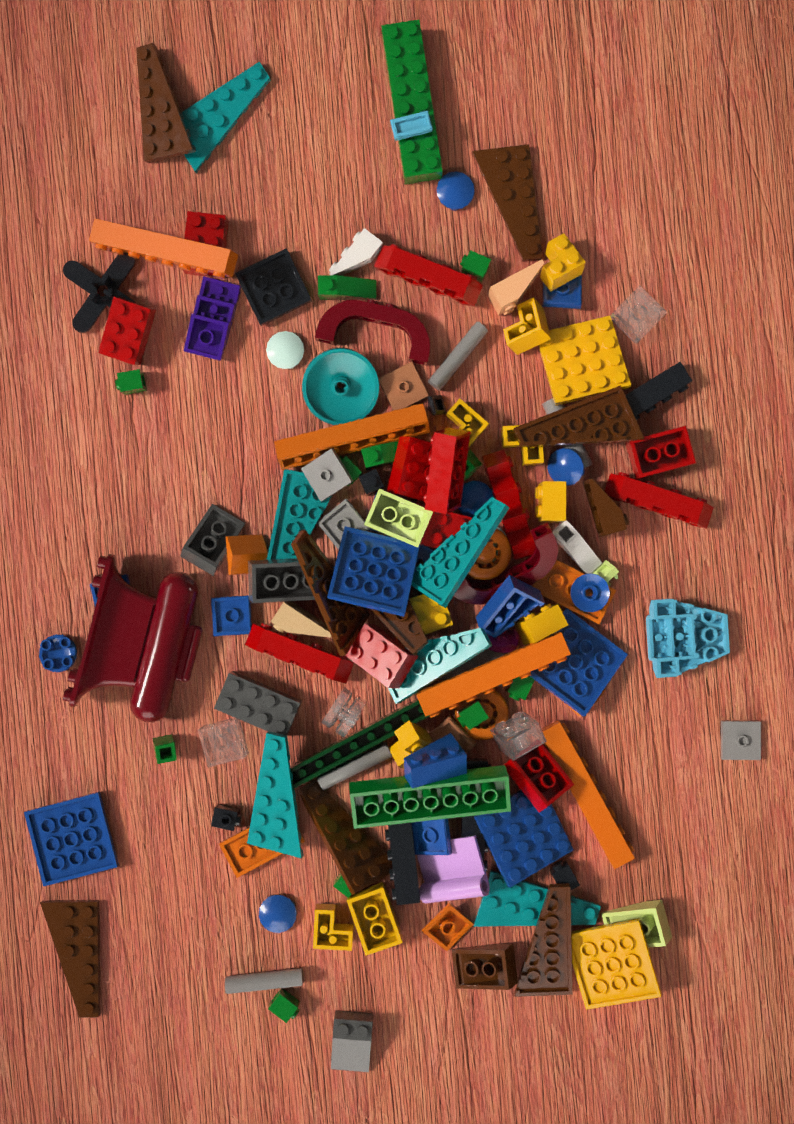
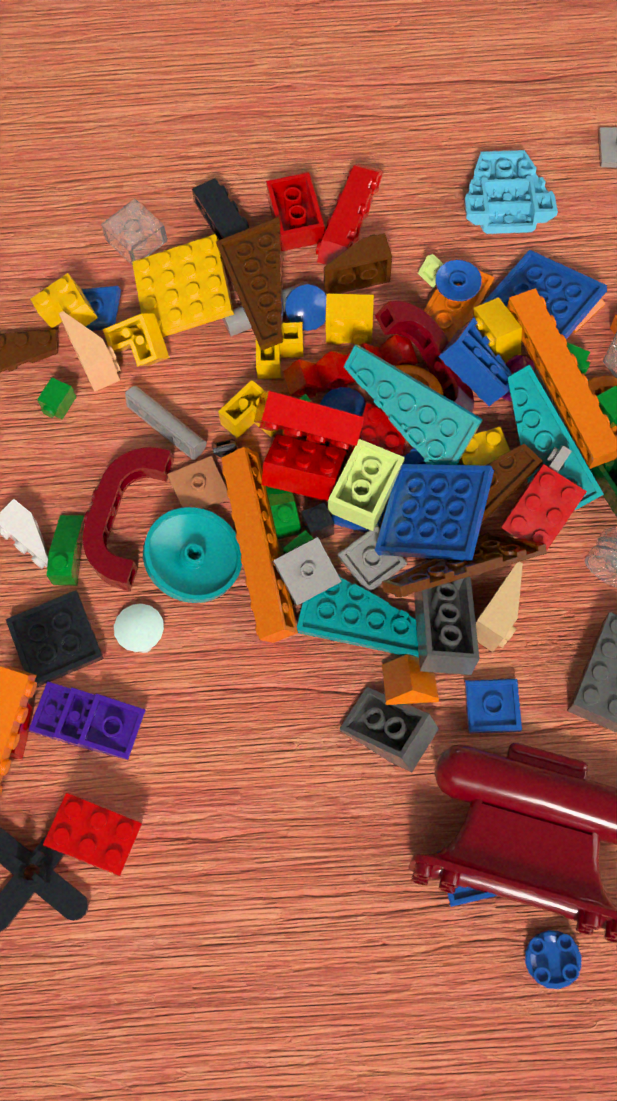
camera: 85 degrees left, 20 degrees down
(131, 382) = (164, 835): green brick -> none
(296, 652) = (541, 618): red brick -> none
(417, 667) = (558, 457): none -> light grey plate
(423, 272) = (57, 453): red brick -> none
(576, 547) = (412, 291): white slope -> none

